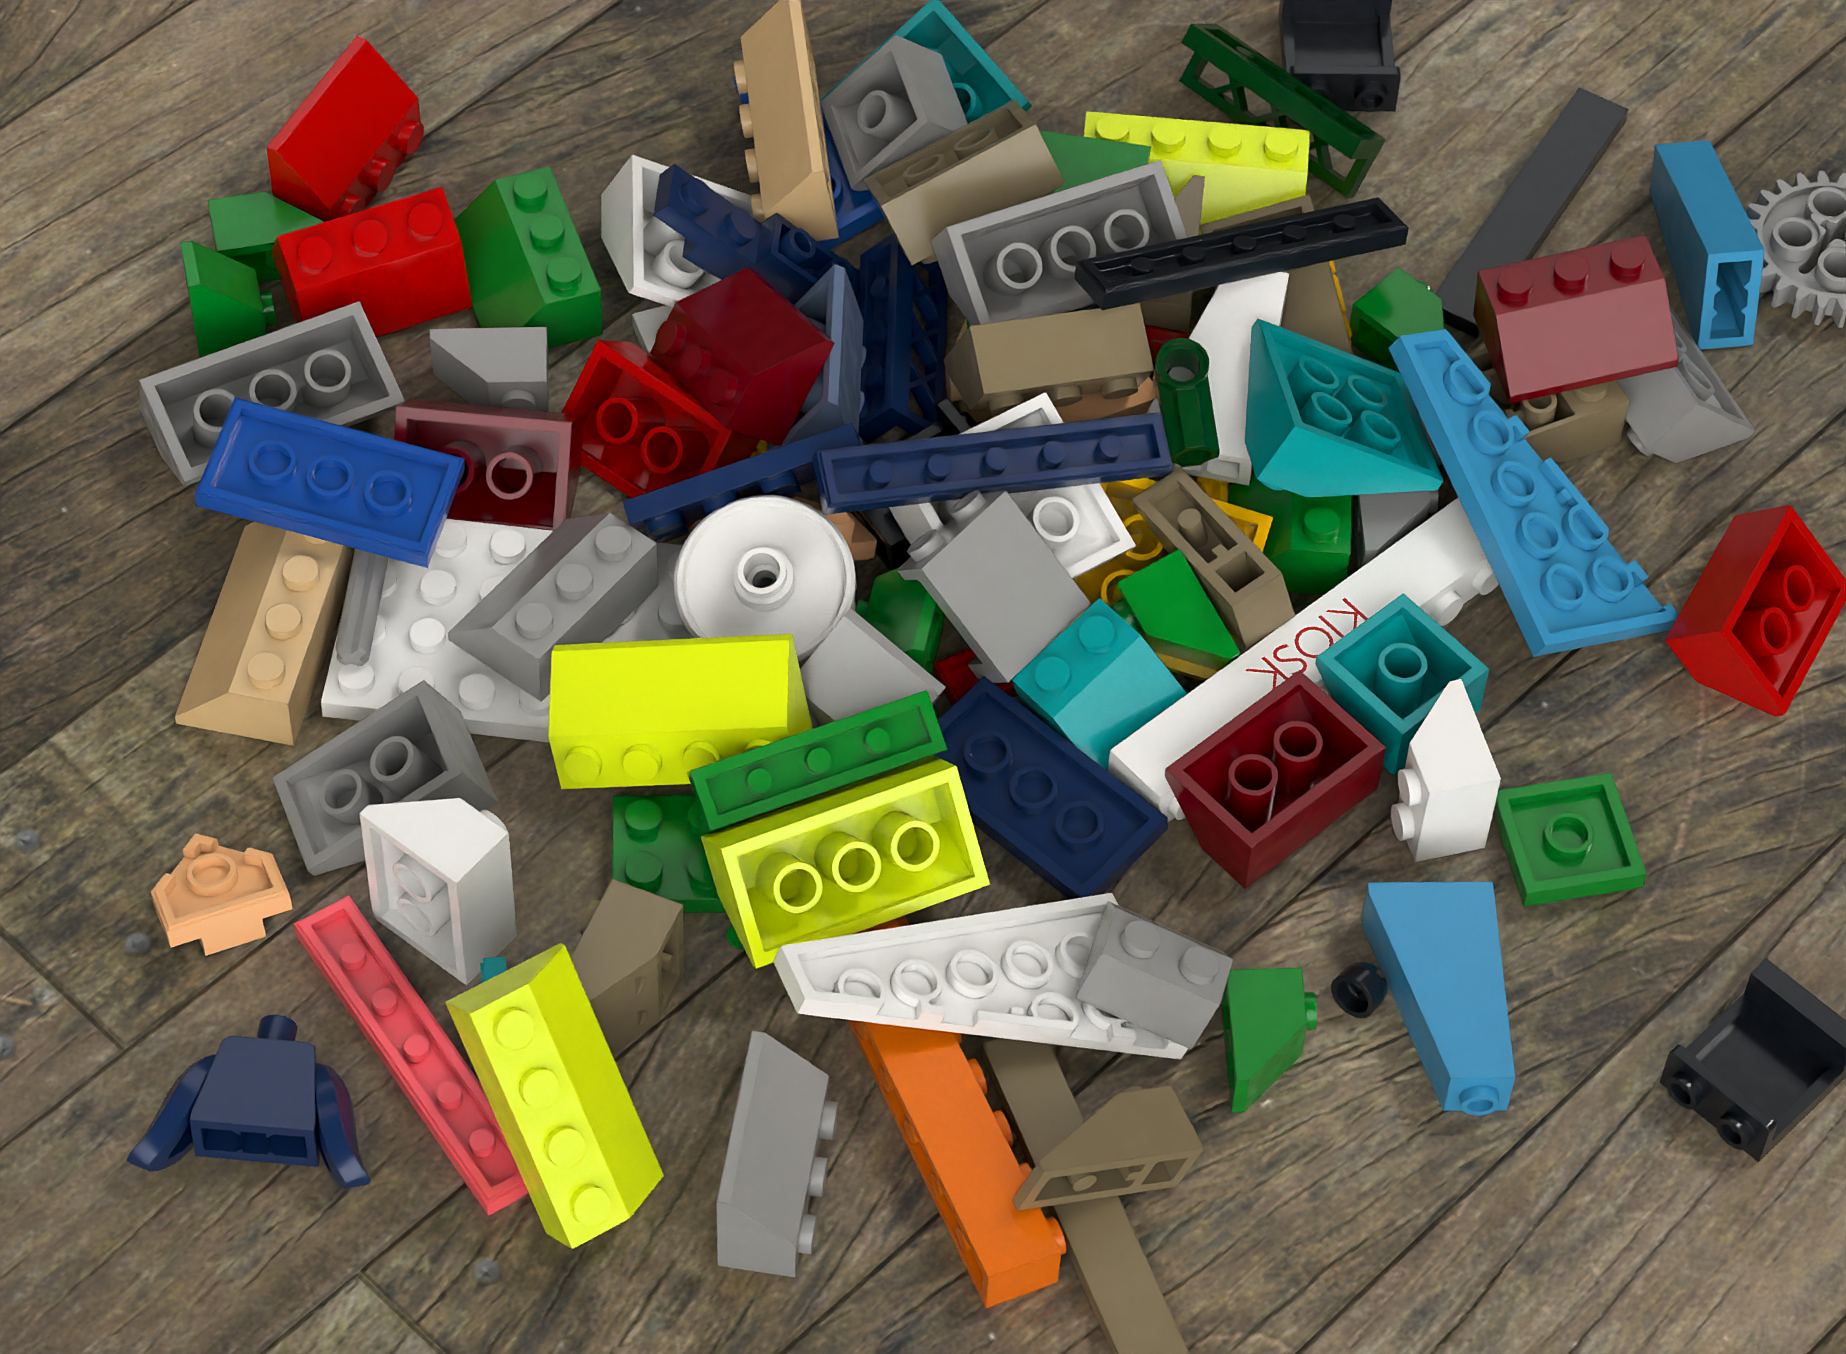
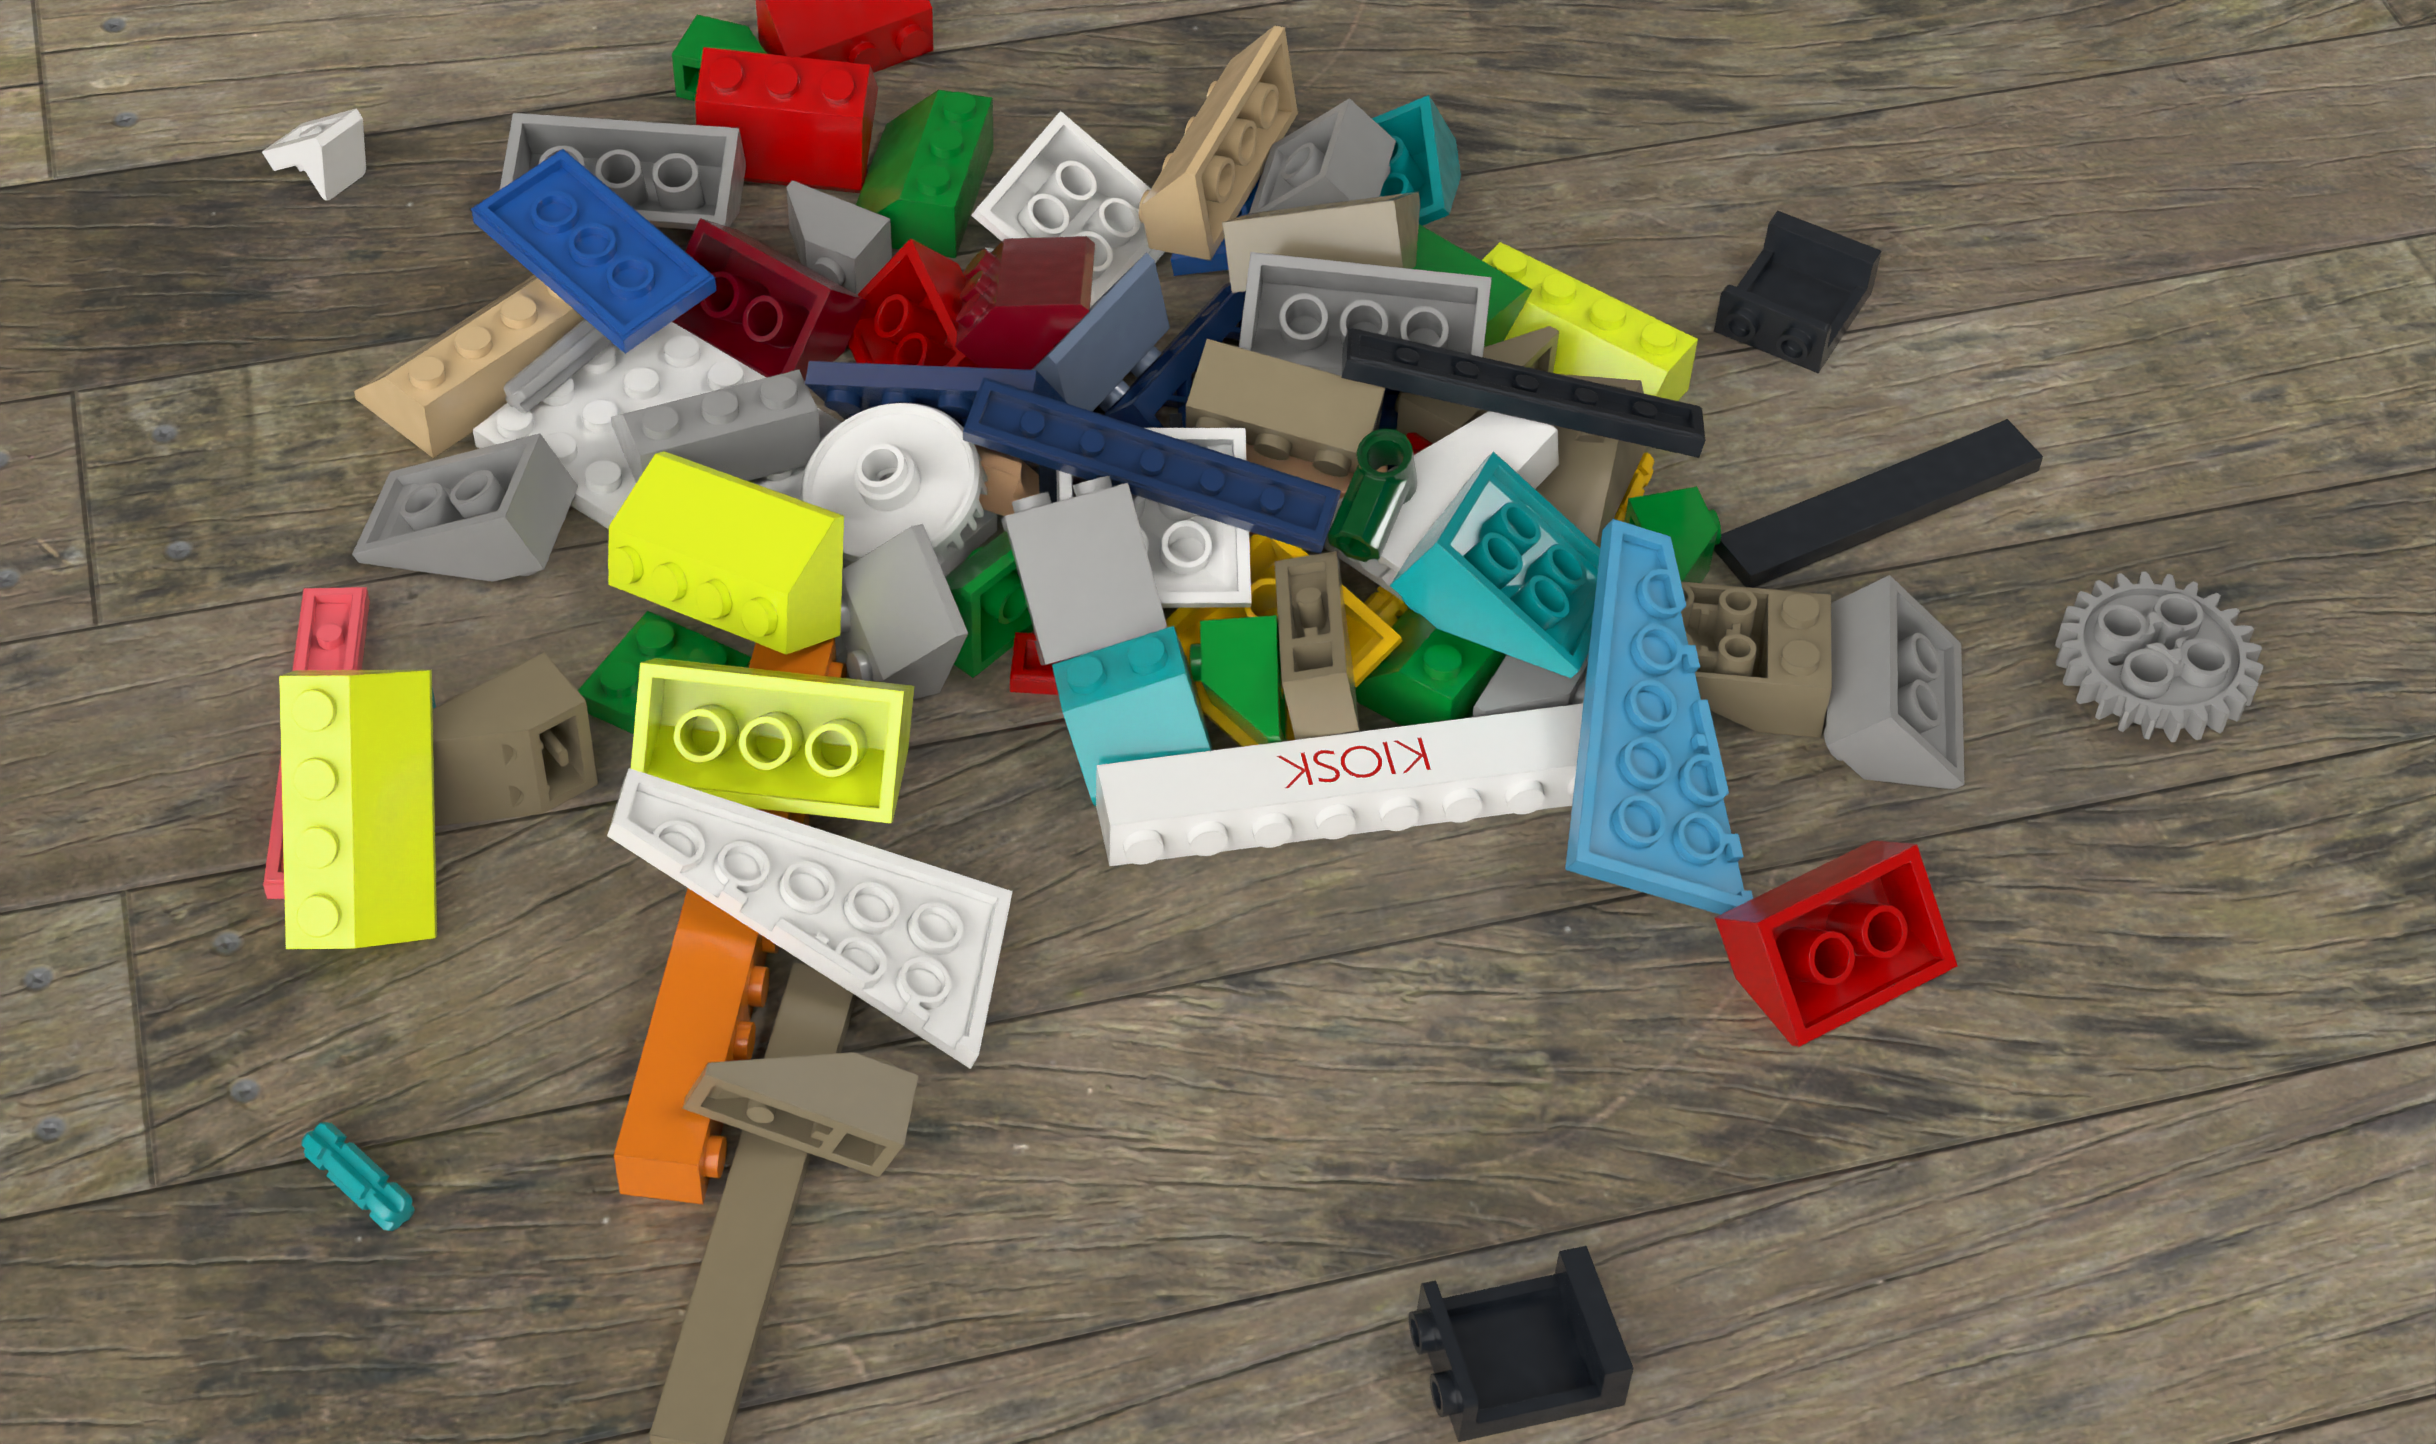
camera: 30 degrees right, 5 degrees down
(219, 895) = (260, 539): light nougat plate -> none
(224, 299) = (644, 81): green slope -> none
(259, 1105) = (142, 709): dark blue torso -> none
(441, 880) = (423, 591): white slope -> none
(728, 239) = (1095, 207): dark blue slope -> none
(774, 1161) = (513, 958): light grey slope -> none
(816, 761) = (799, 638): green fence -> none
(1045, 795) = (1013, 776): dark blue plate -> none
(1153, 976) = (981, 969): light grey slope -> none
(1263, 1028) = (1053, 1076): green slope -> none
(1275, 777) = (1234, 861): dark red slope -> none
(1286, 97) = (1706, 312): dark green fence -> none
(1350, 999) = (1180, 1087): black hinge -> none
(1394, 673) = (1420, 836): teal slope -> none
(1446, 782) = (1387, 933): white slope -> none
(1448, 982) = (1267, 1120): dark azure slope -> none
(1568, 839) = (1485, 1052): green plate -> none
(1576, 318) = (1814, 585): slope -> none
(1708, 243) = (2026, 599): dark azure slope -> none

